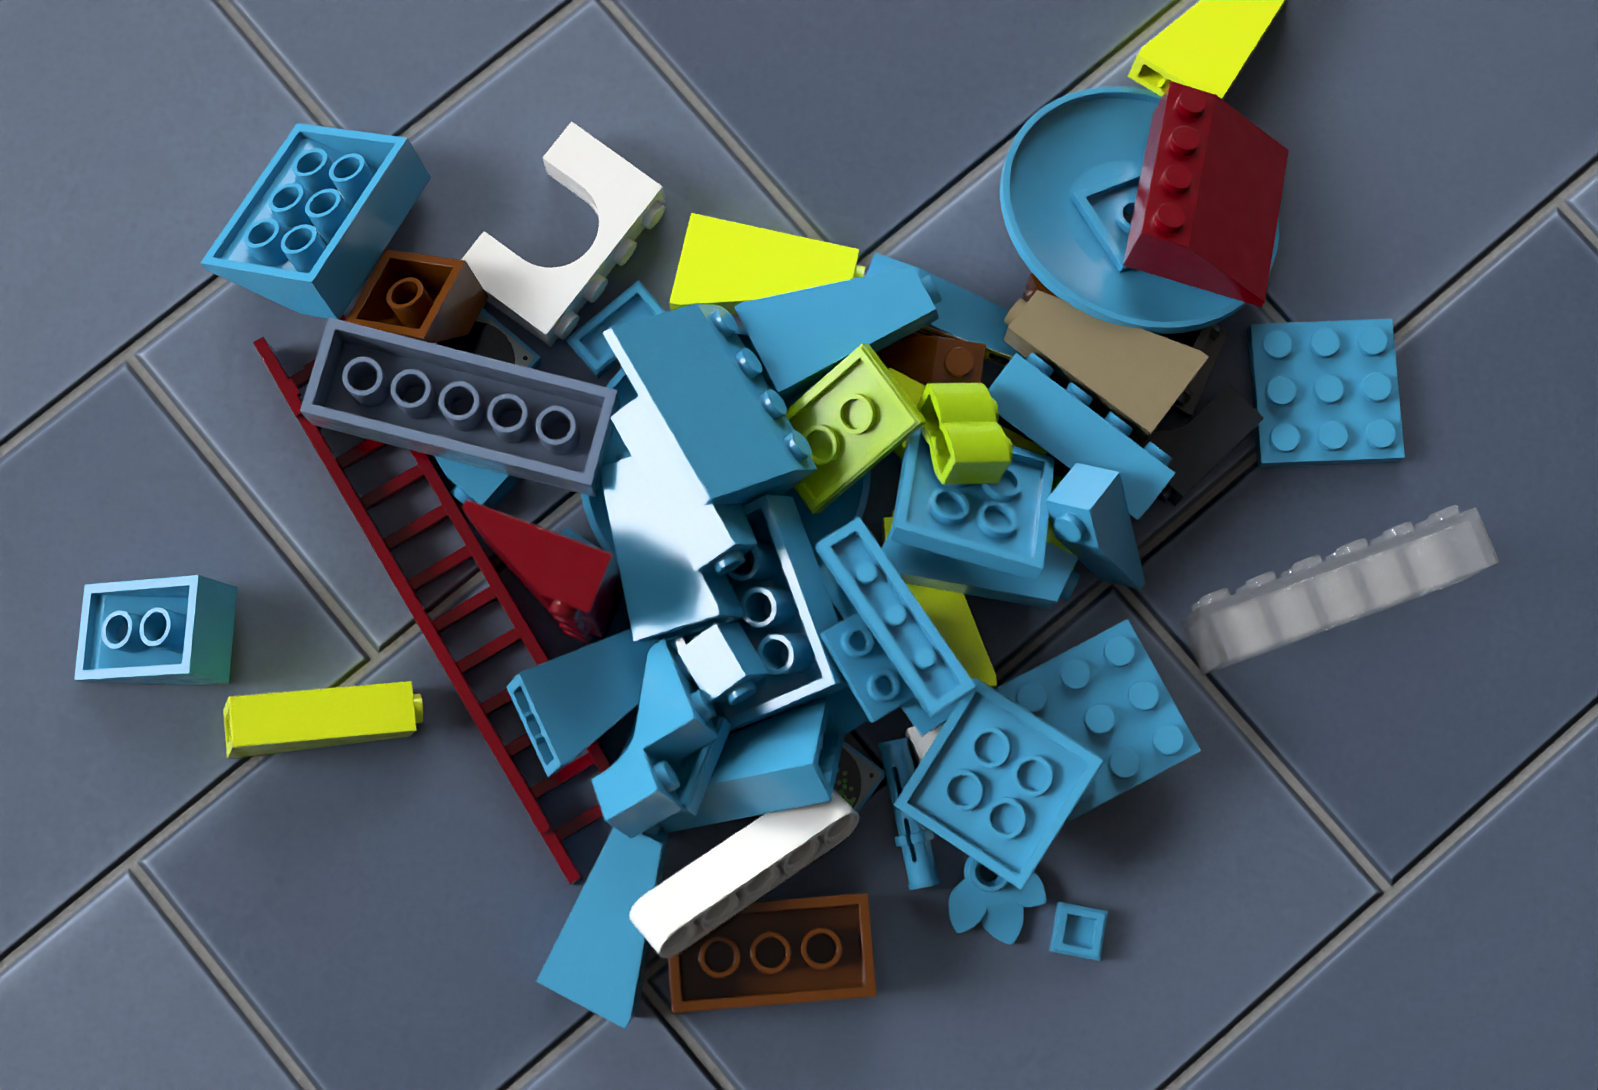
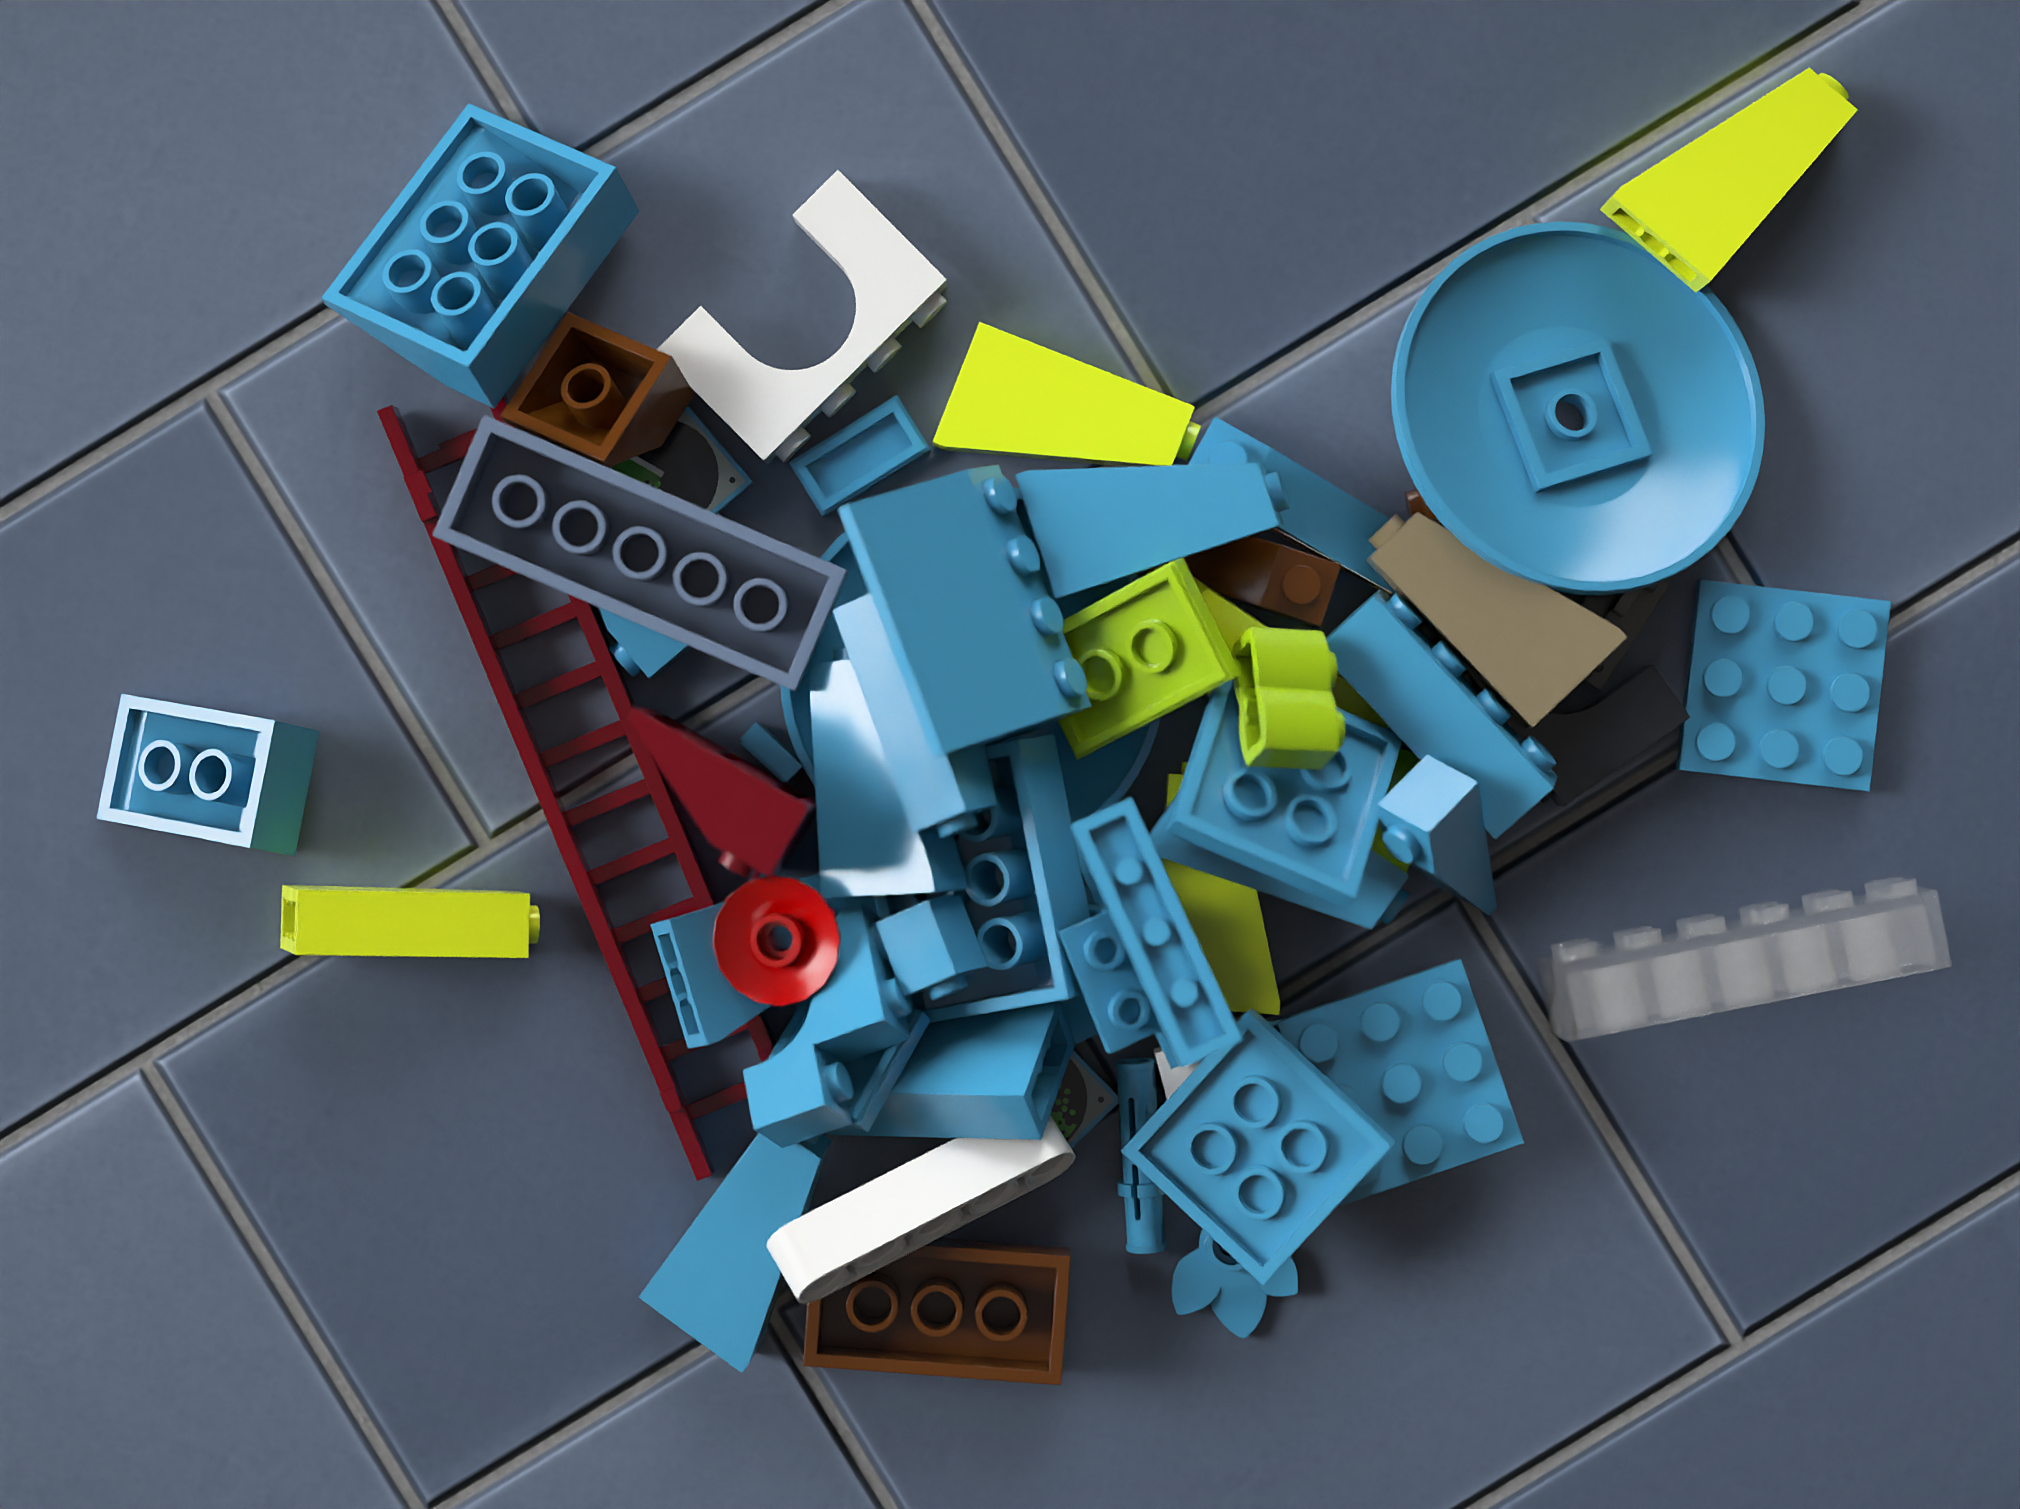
camera: 15 degrees right, 10 degrees up
(580, 671) = (747, 946): none -> red dish
(1078, 931) = (1332, 1335): dark azure tile -> none
(1207, 197) = (1670, 410): dark red slope -> none

